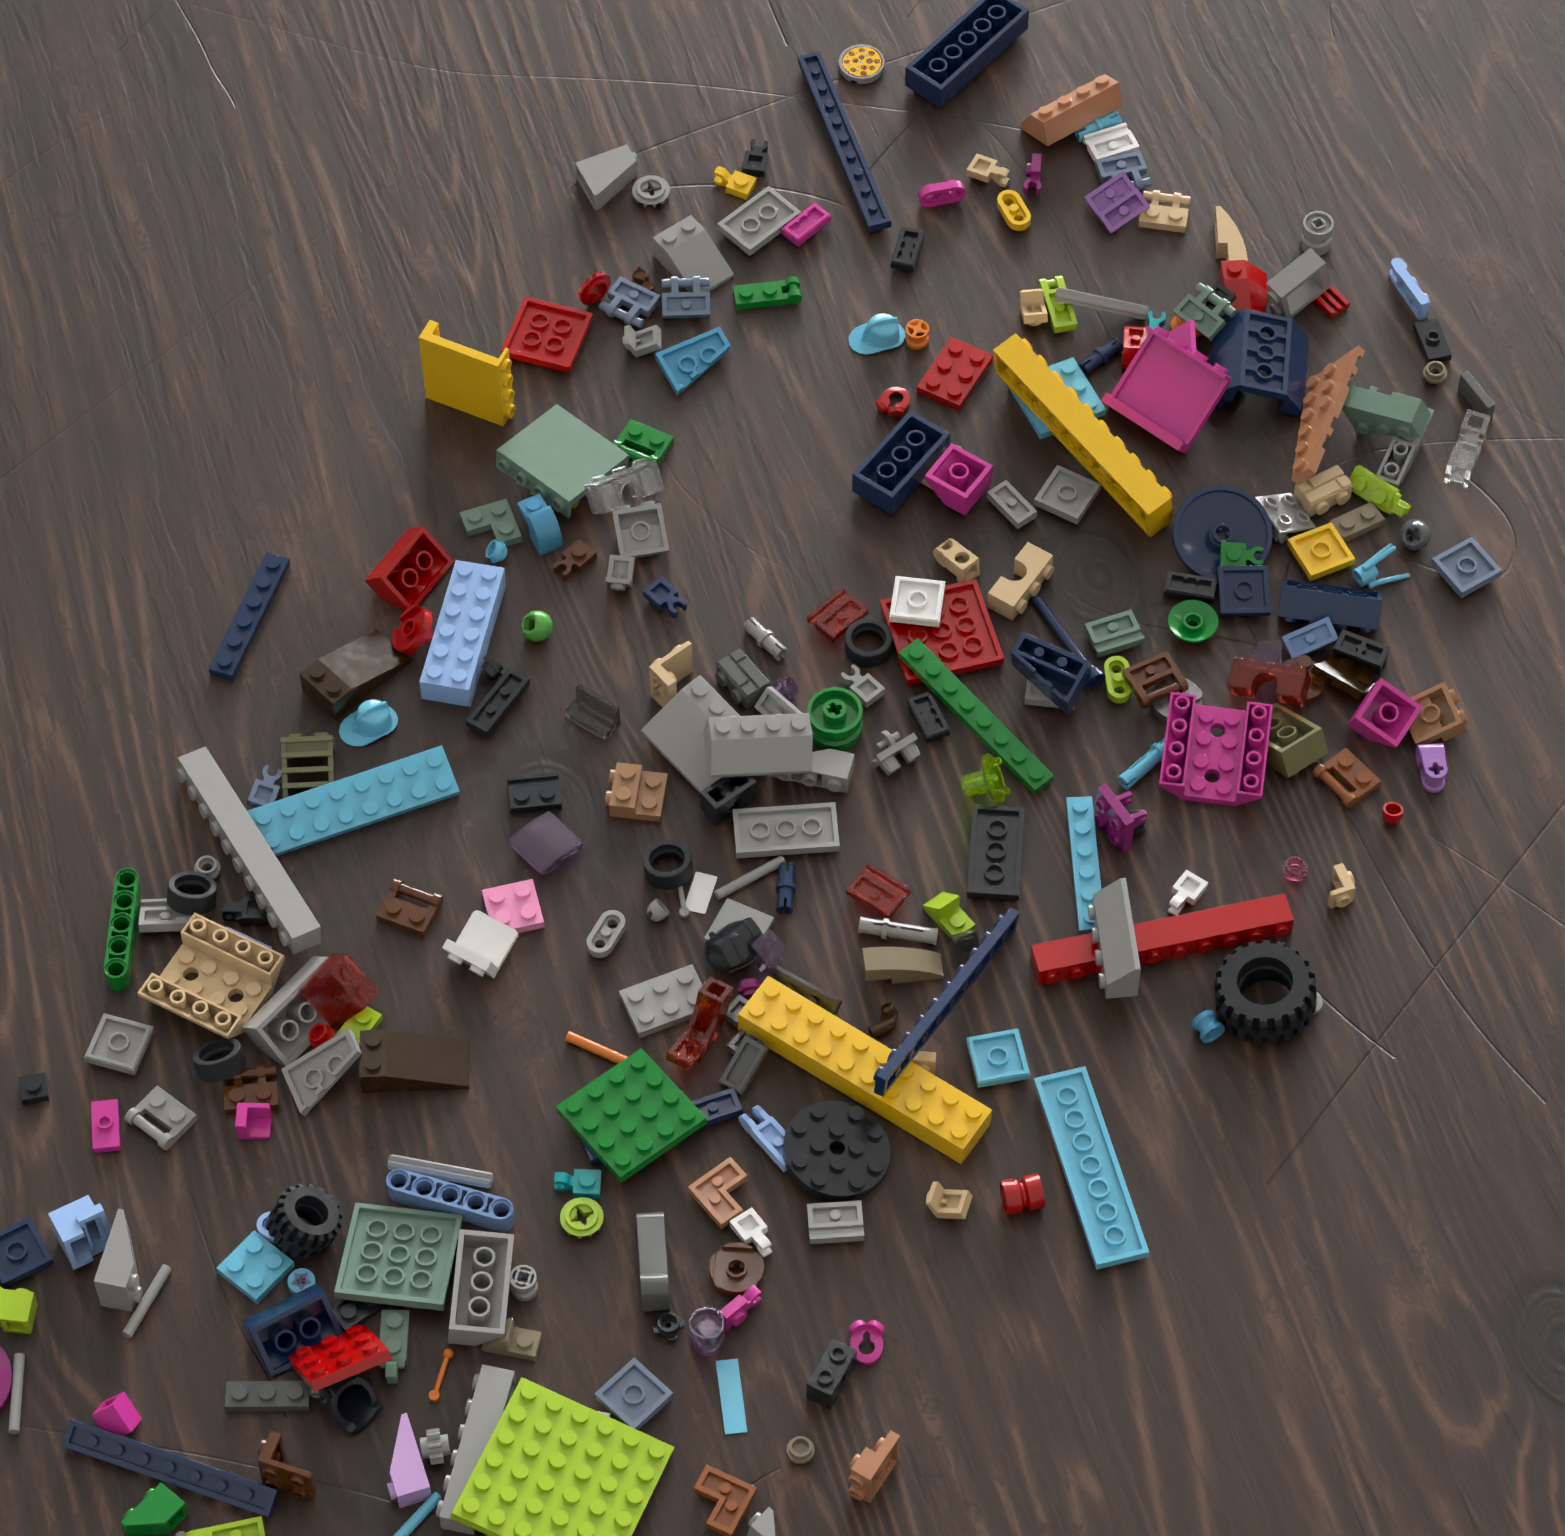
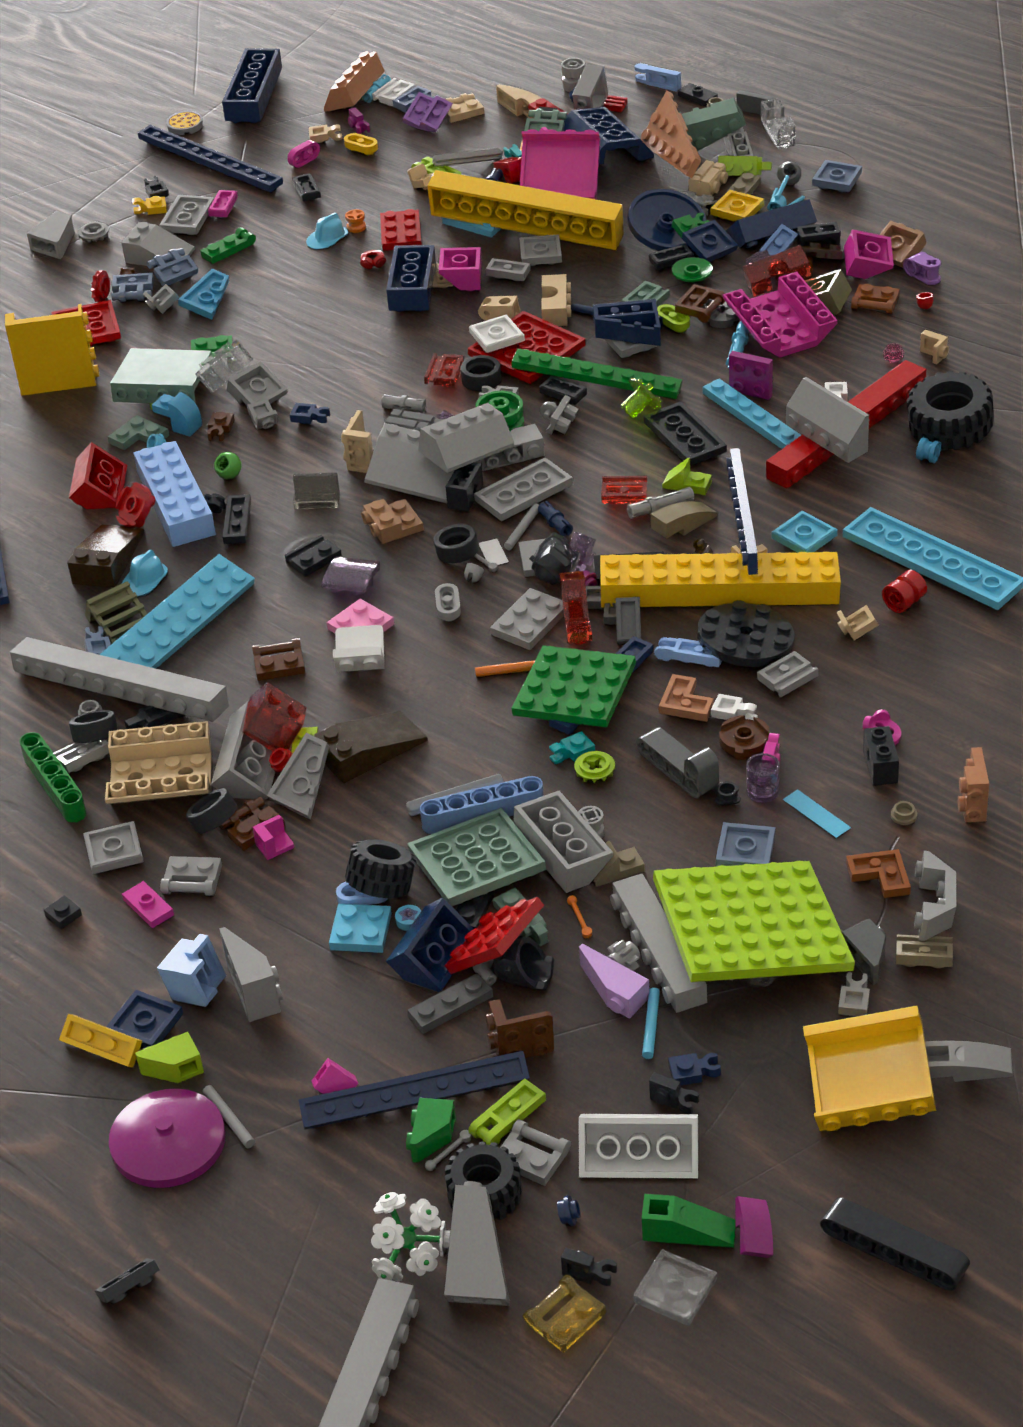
camera: 30 degrees left, 15 degrees down
(146, 1301) = (288, 1000): light grey bar -> none
(963, 944) = (717, 487): clear smoke plate -> none

